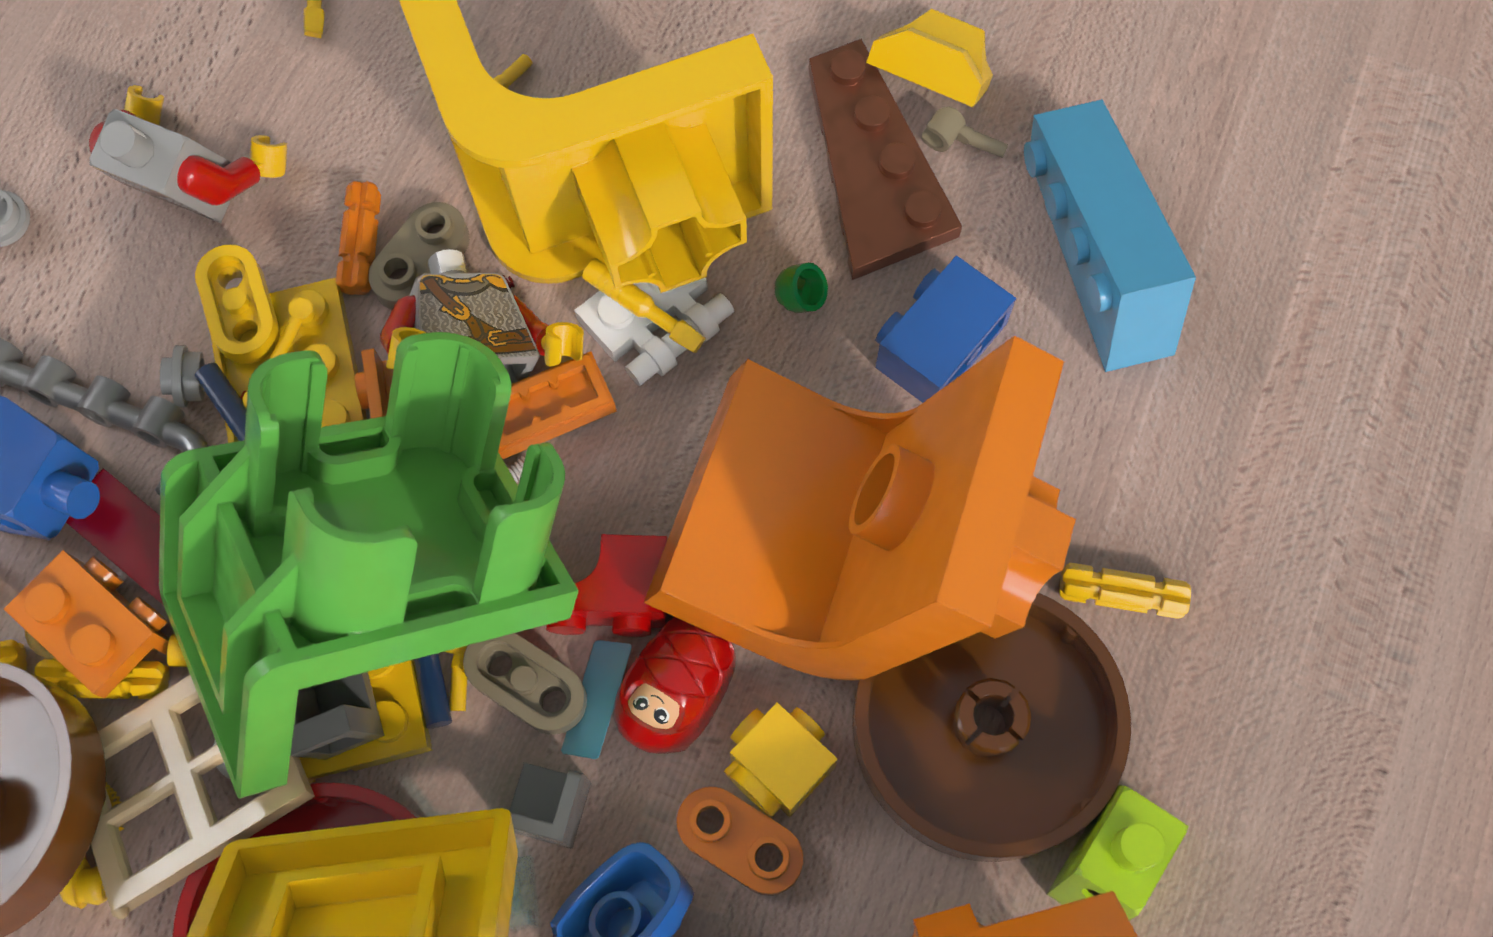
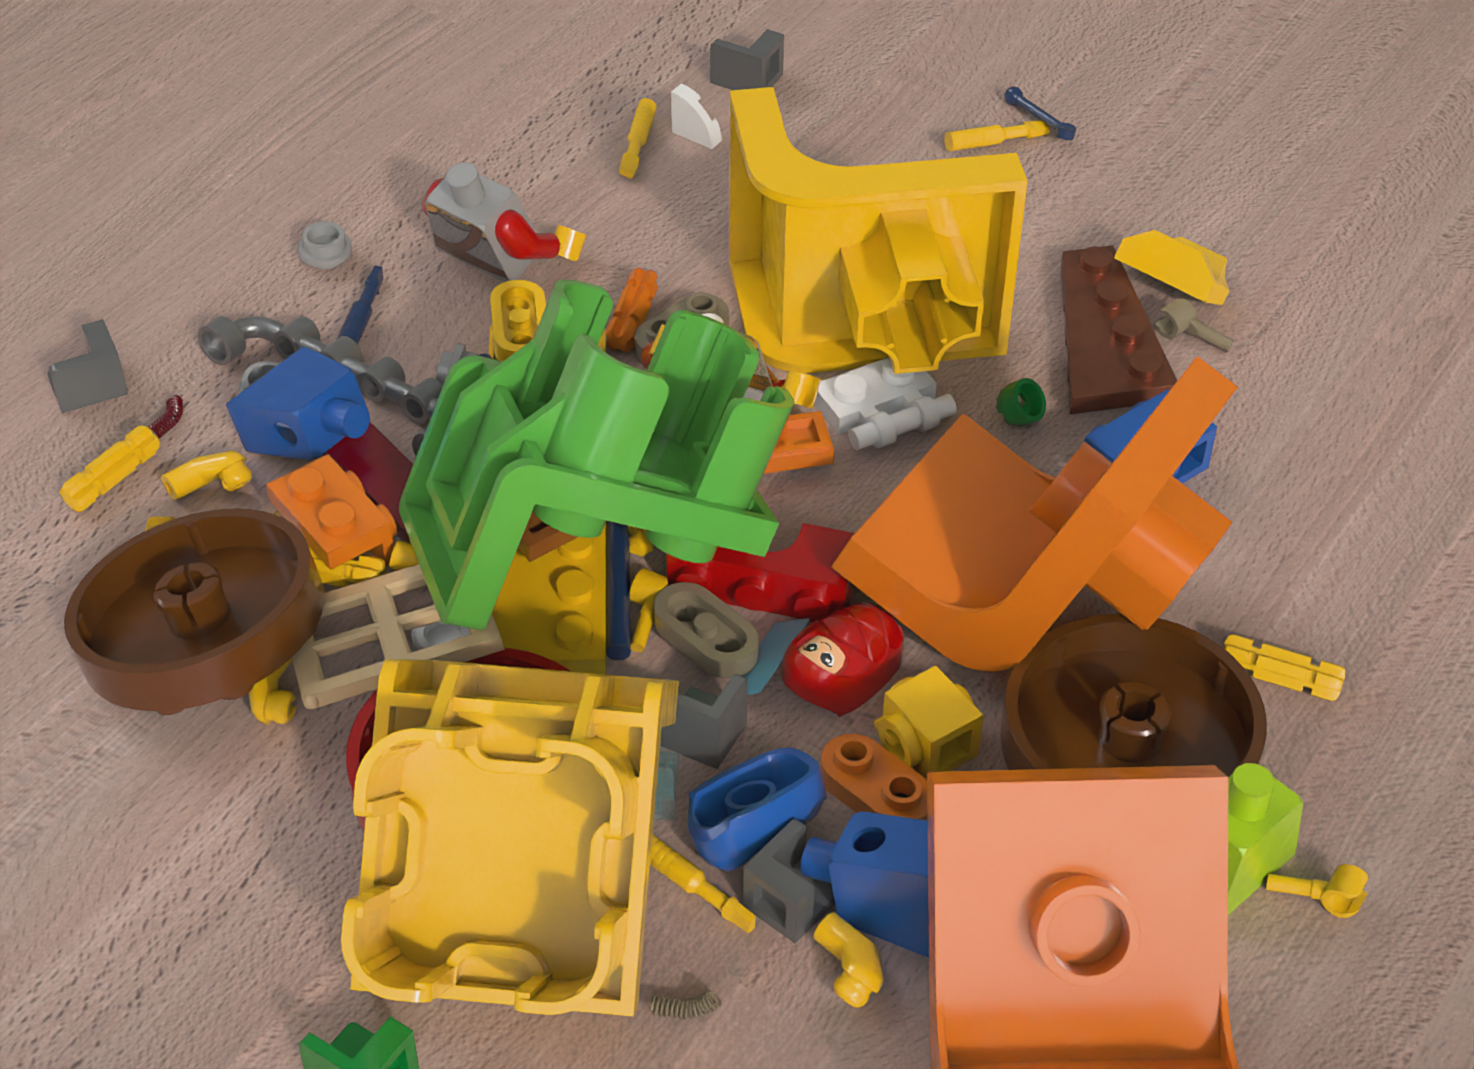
camera: 10 degrees right, 25 degrees down
(60, 303) = (361, 310): none -> dark blue piece
(335, 718) = (533, 612): dark grey panel -> none
(642, 305) = (874, 381): yellow piece -> none
(1111, 235) = (1316, 410): dark azure wedge -> none
(1226, 874) = (1339, 896): none -> yellow hand

